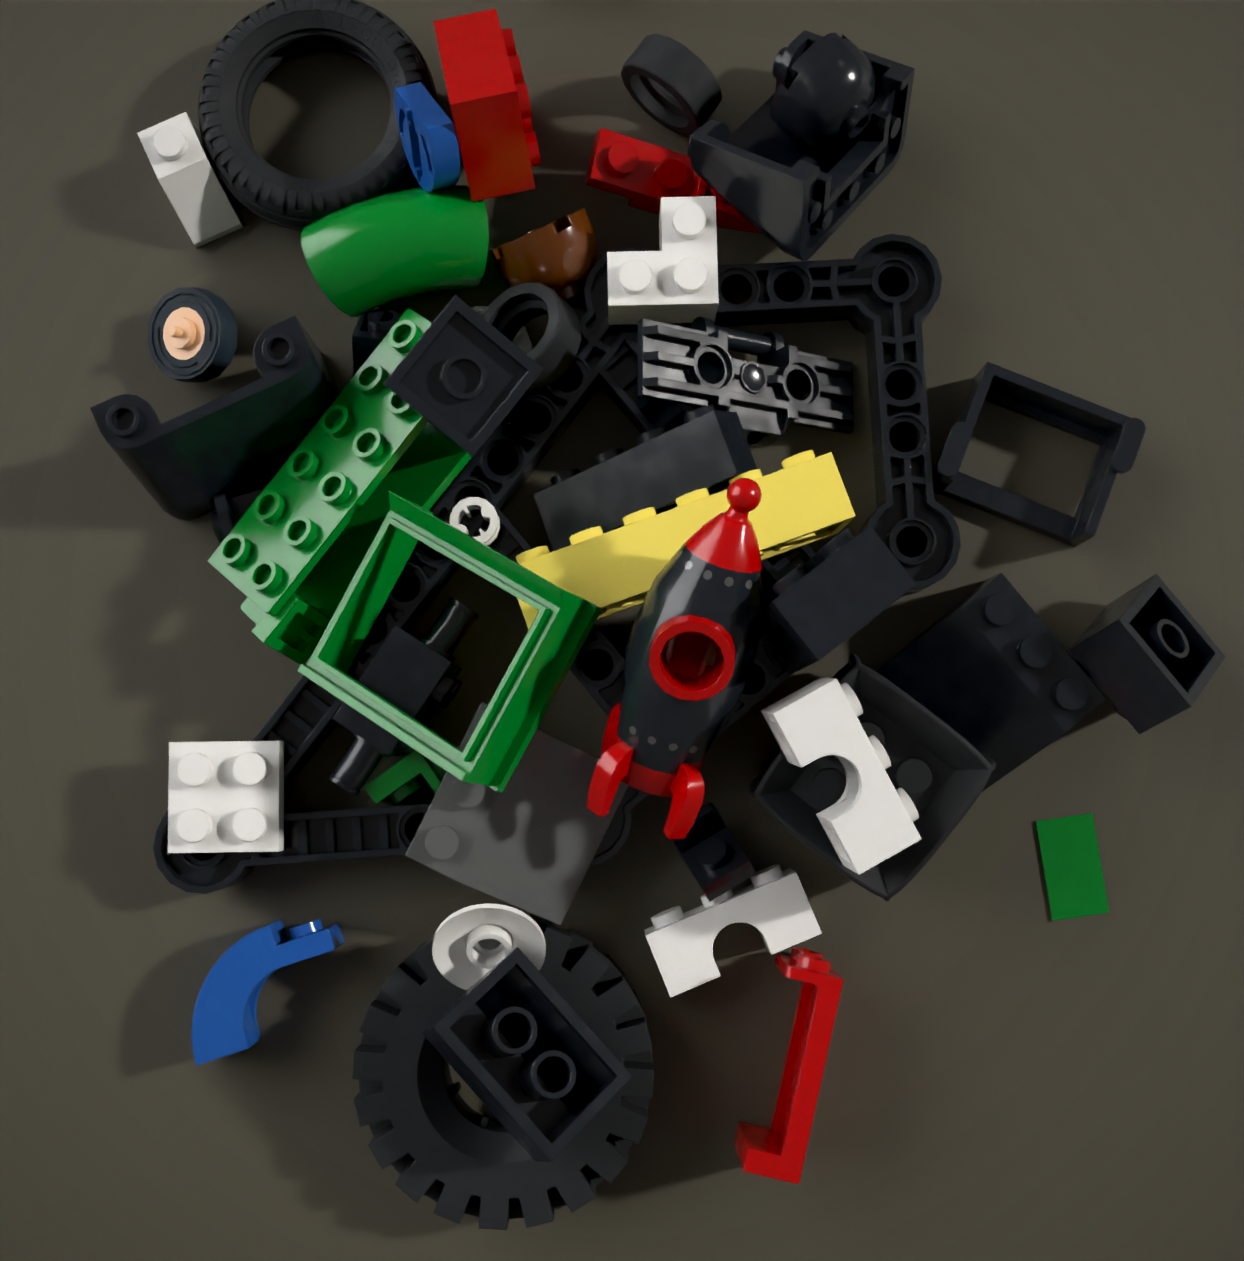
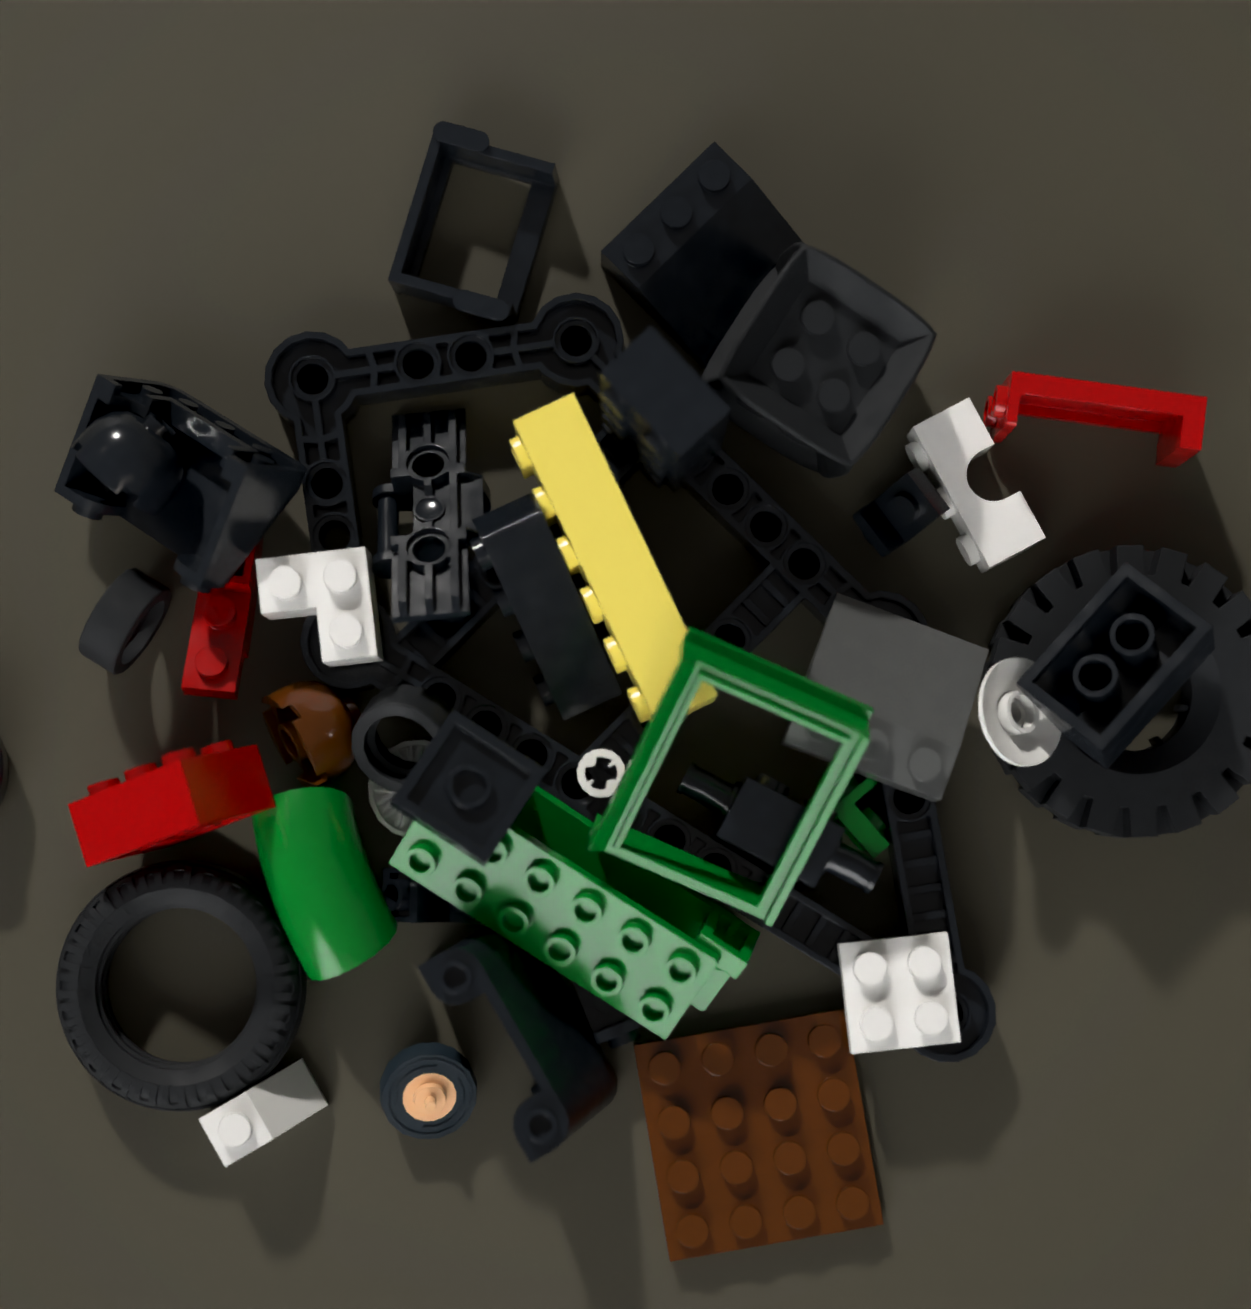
camera: 95 degrees left, 0 degrees up
(114, 648) = (757, 1134): none -> reddish brown plate
(228, 999) = (1101, 975): blue arch -> none
(427, 137) = (216, 857): blue piece -> none
(686, 665) = (739, 541): piece -> none
(871, 815) = (863, 354): white arch -> none
(1072, 866) = (876, 162): green sticker -> none
(1148, 654) = (666, 104): black brick -> none

